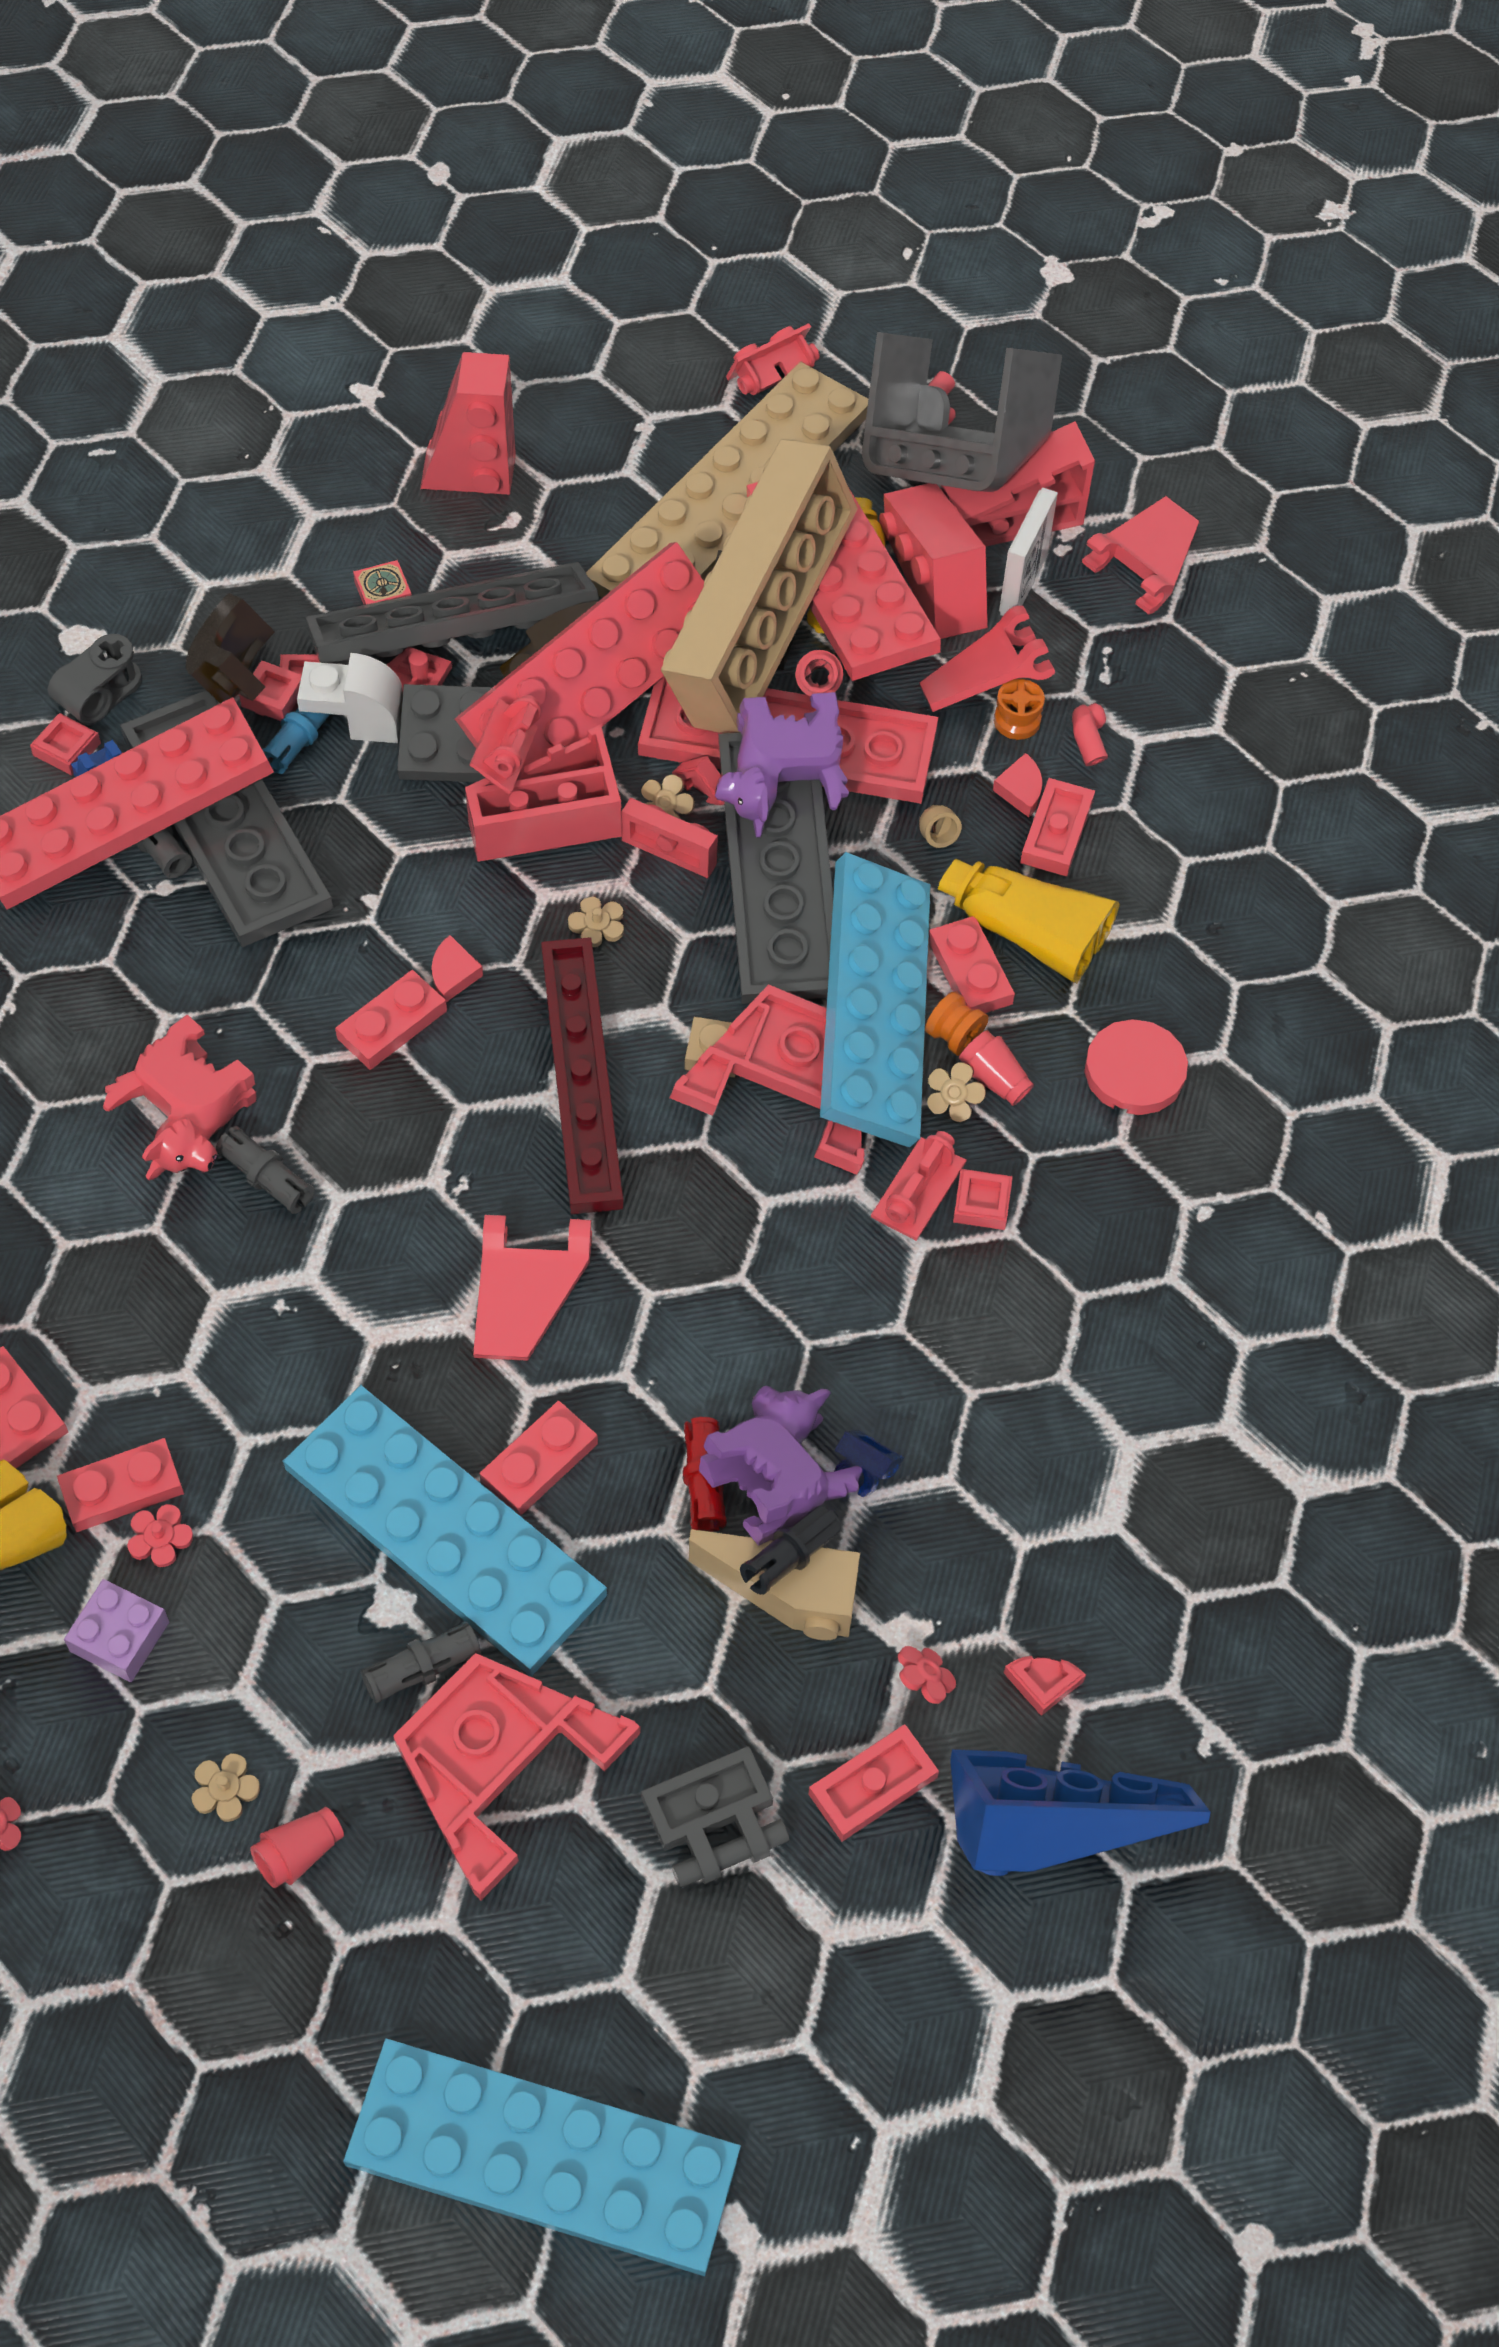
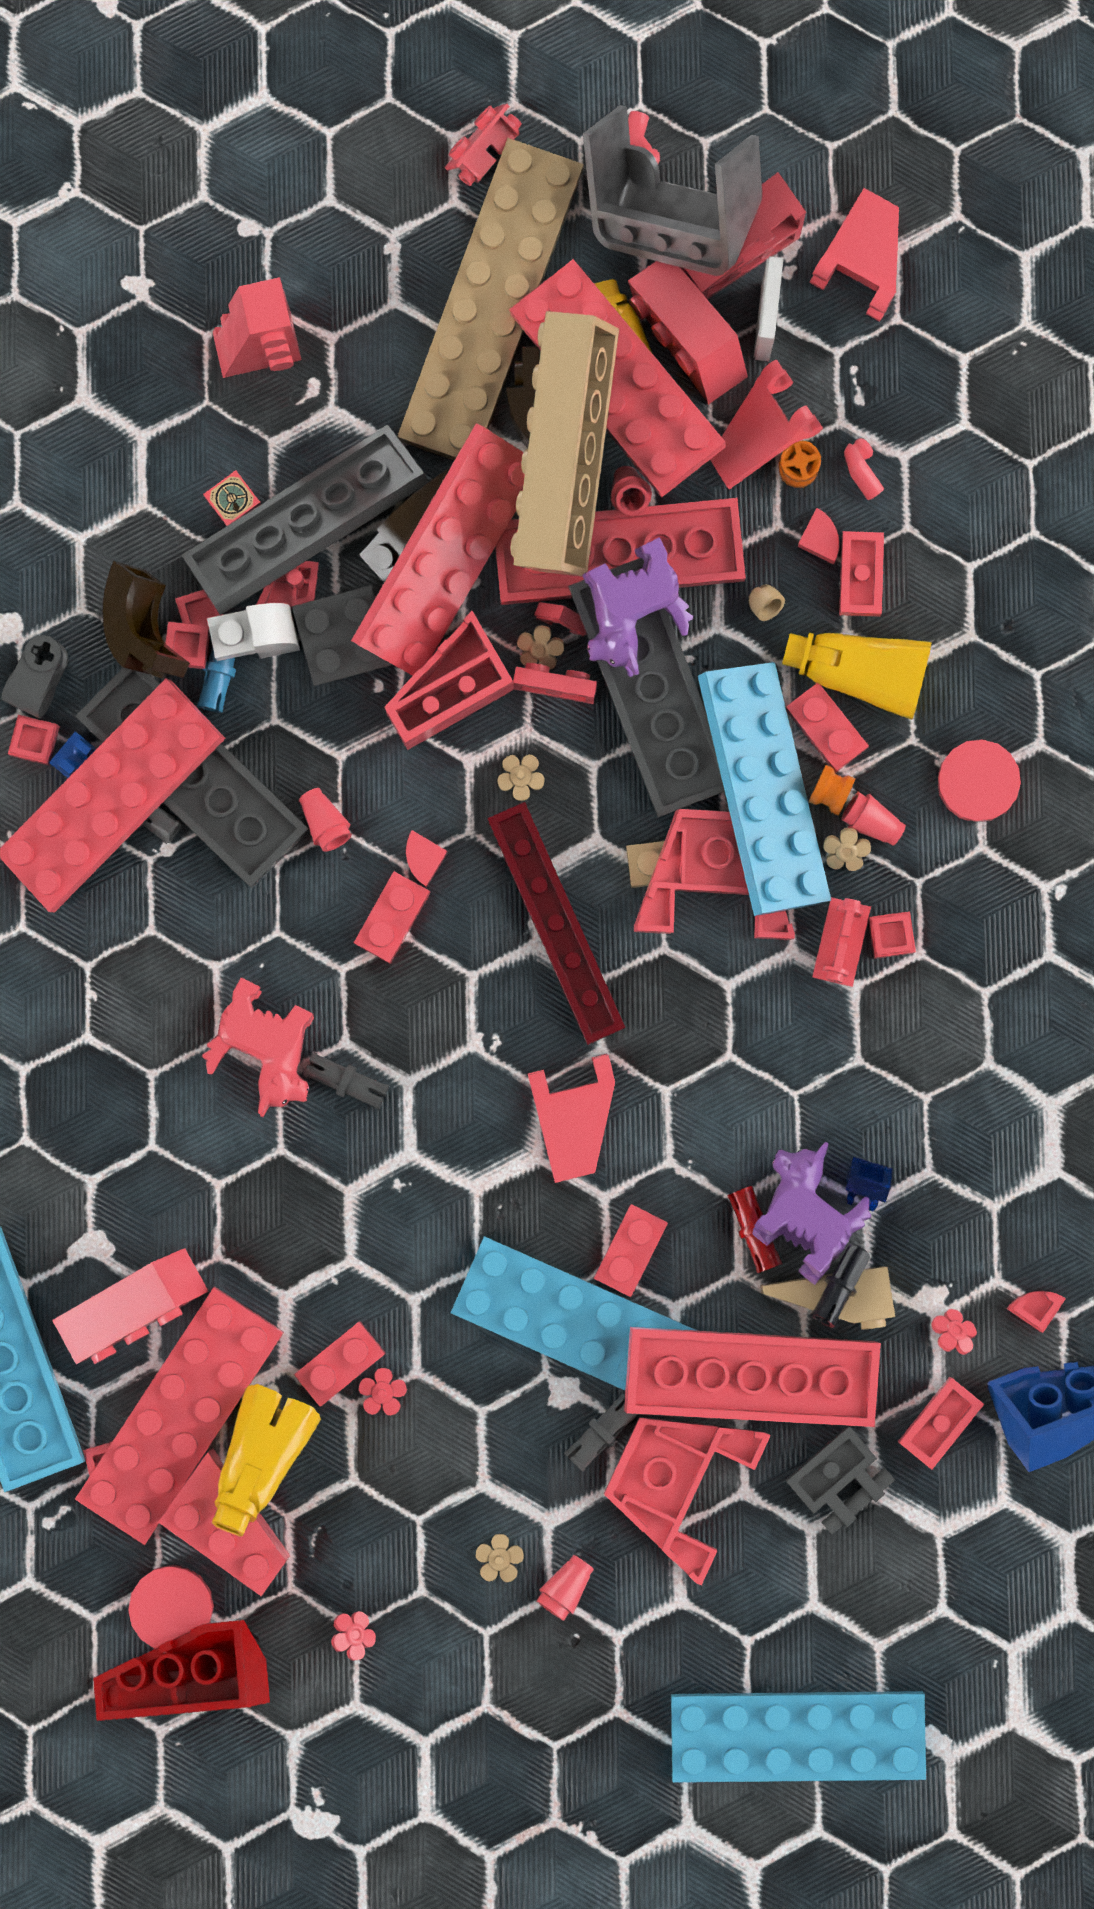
camera: 10 degrees left, 25 degrees up
(116, 1630) = (382, 1474): lavender piece -> none
(354, 901) = (324, 820): none -> coral cone
(507, 741) = (405, 662): coral hinge -> none
(640, 1641) = (752, 1377): none -> coral plate

